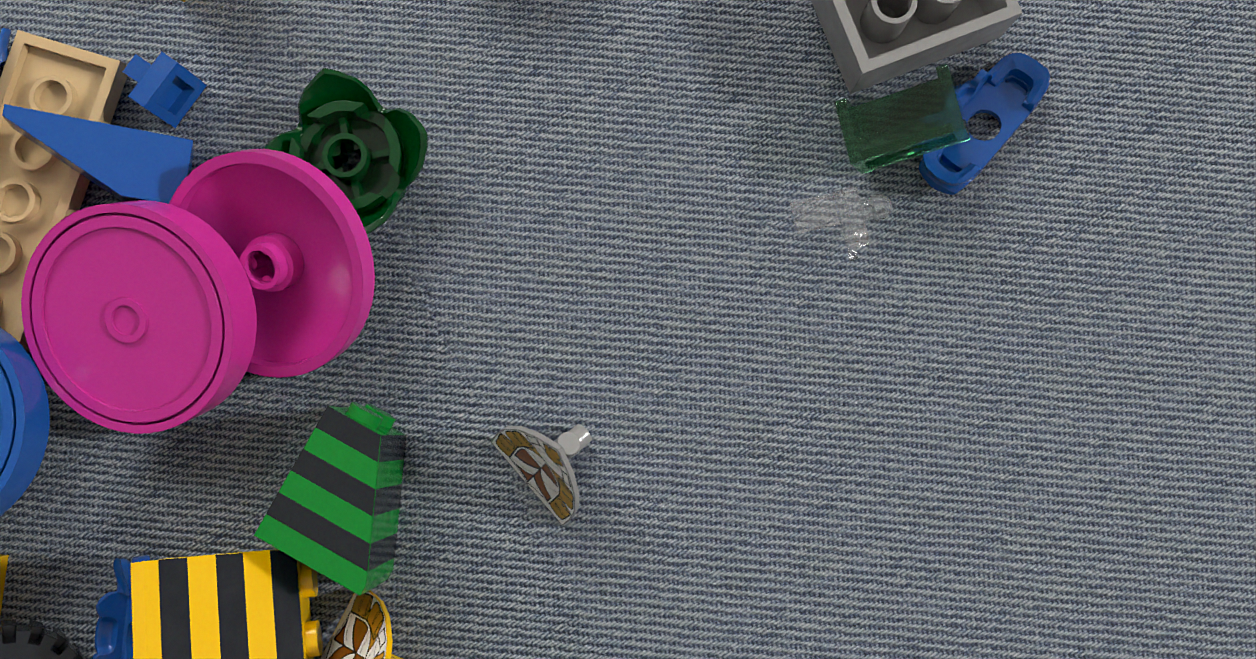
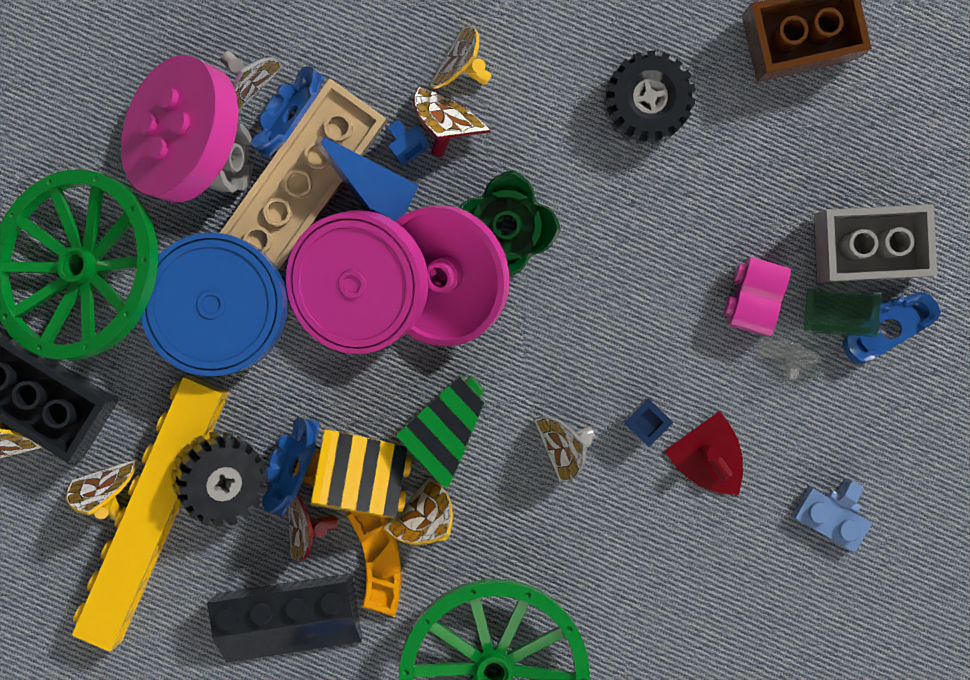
camera: 15 degrees right, 5 degrees up
(206, 33) = (445, 119): none -> shield
(662, 385) = (647, 422): none -> dark blue tile
(765, 141) = (757, 296): none -> dark pink brick
(780, 408) = (710, 456): none -> dark red shield
(1003, 434) = (835, 514): none -> medium blue hinge

